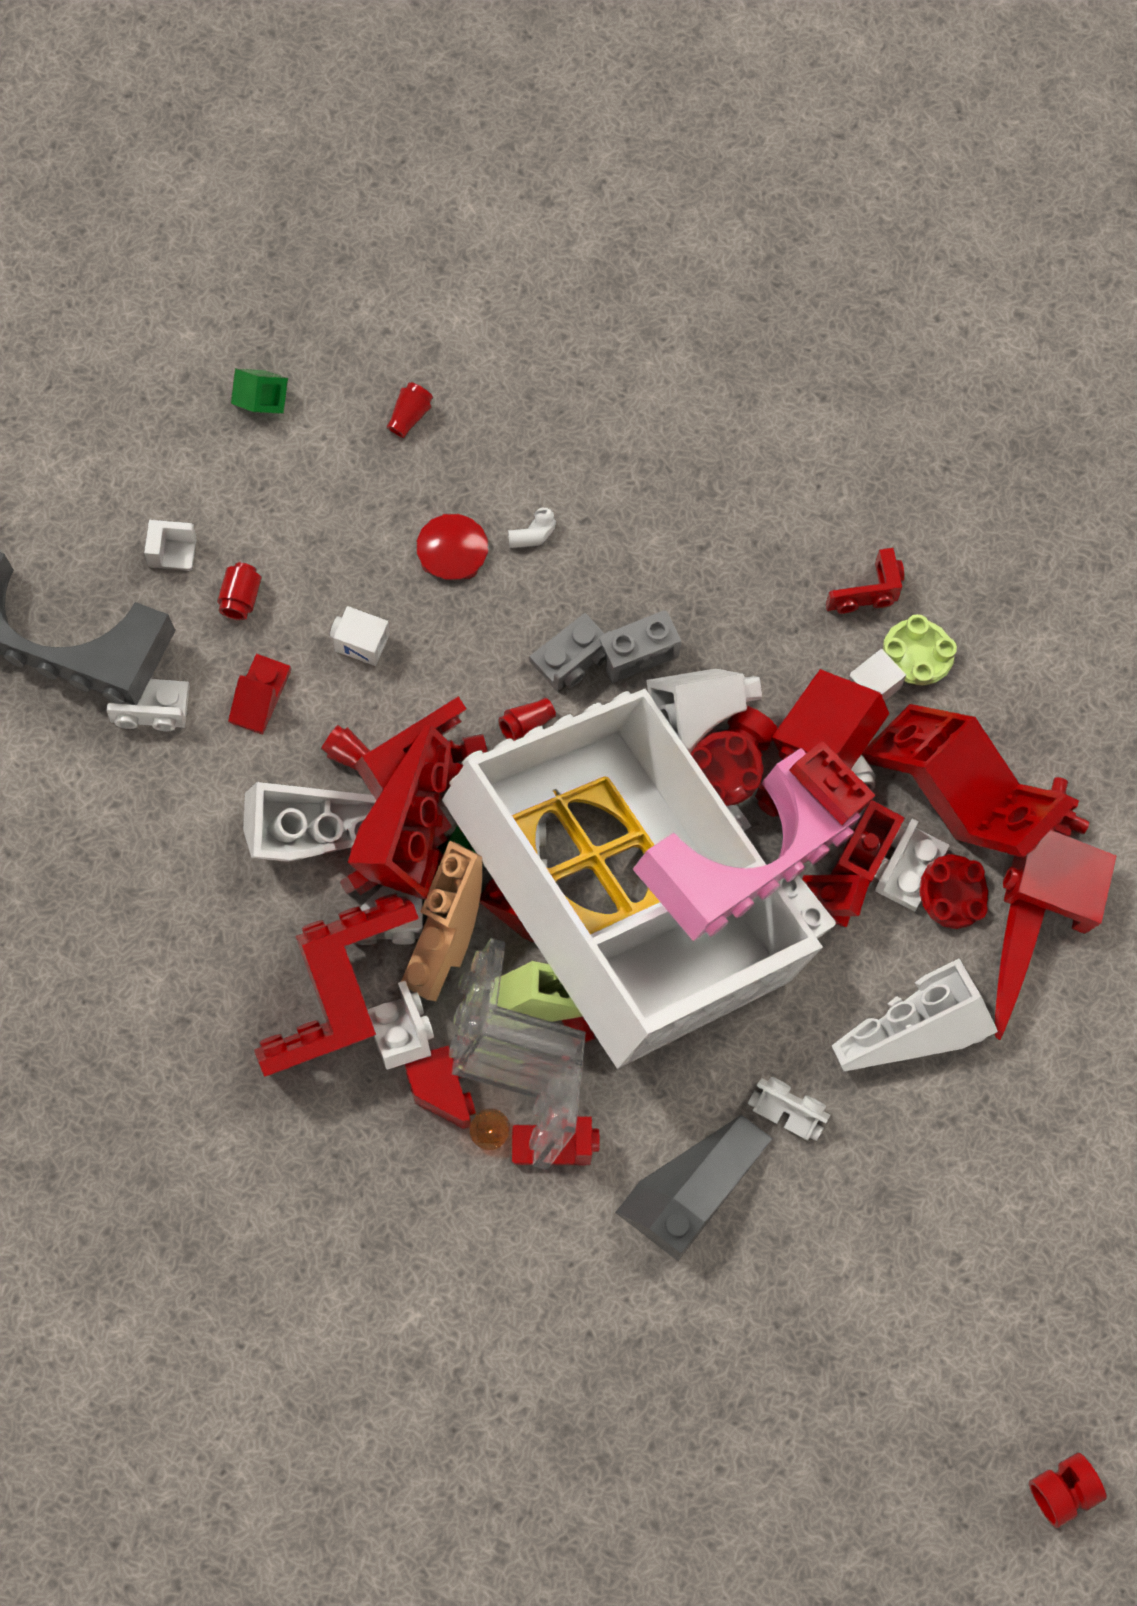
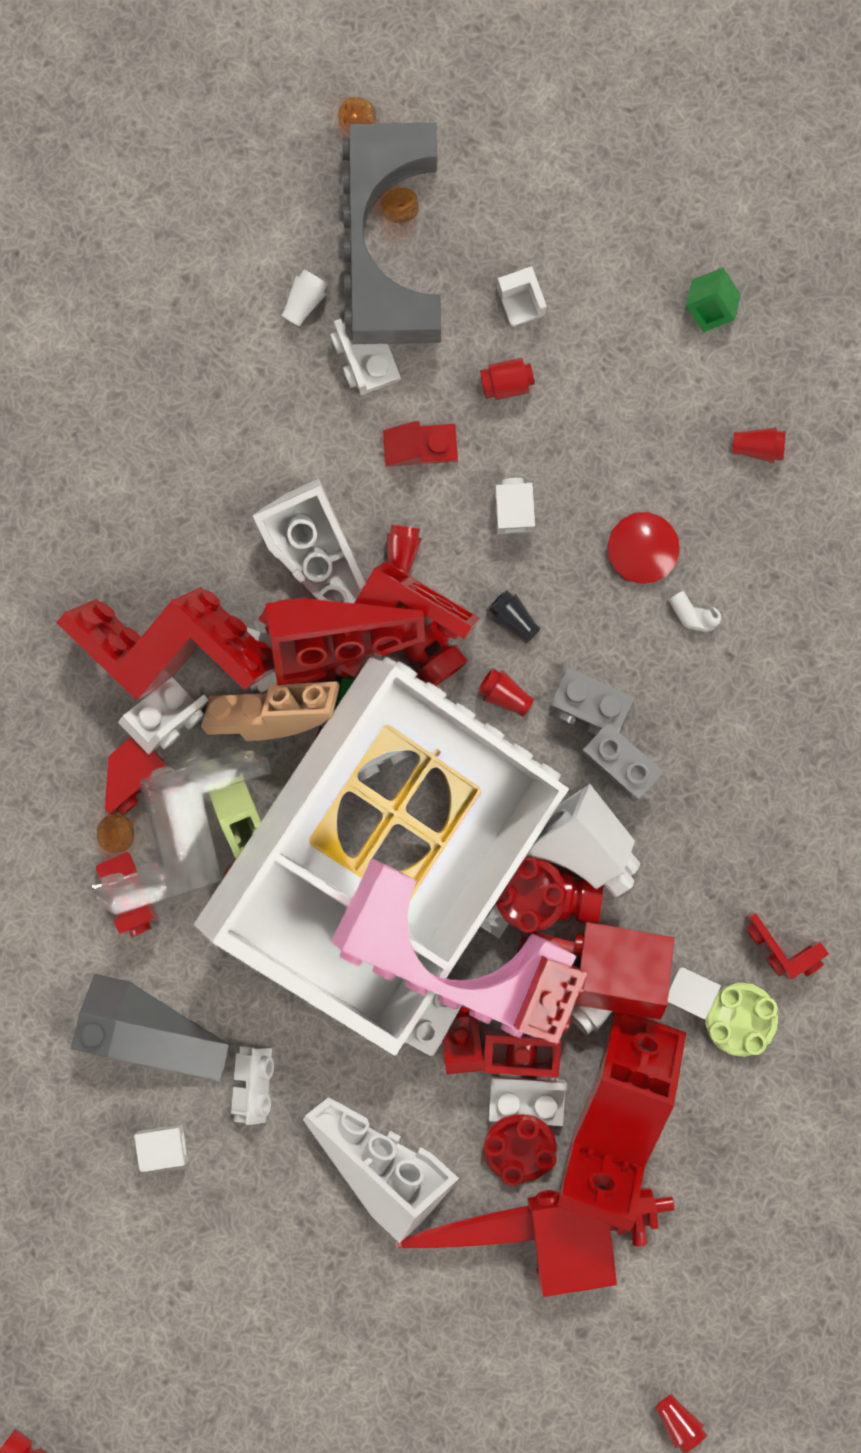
camera: 65 degrees right, 15 degrees up
(28, 611) = (400, 205): none -> clear orange tile
(66, 730) = (304, 297): none -> white cone
(459, 681) = (513, 616): none -> black cone
(813, 1215) = (161, 1148): none -> white panel

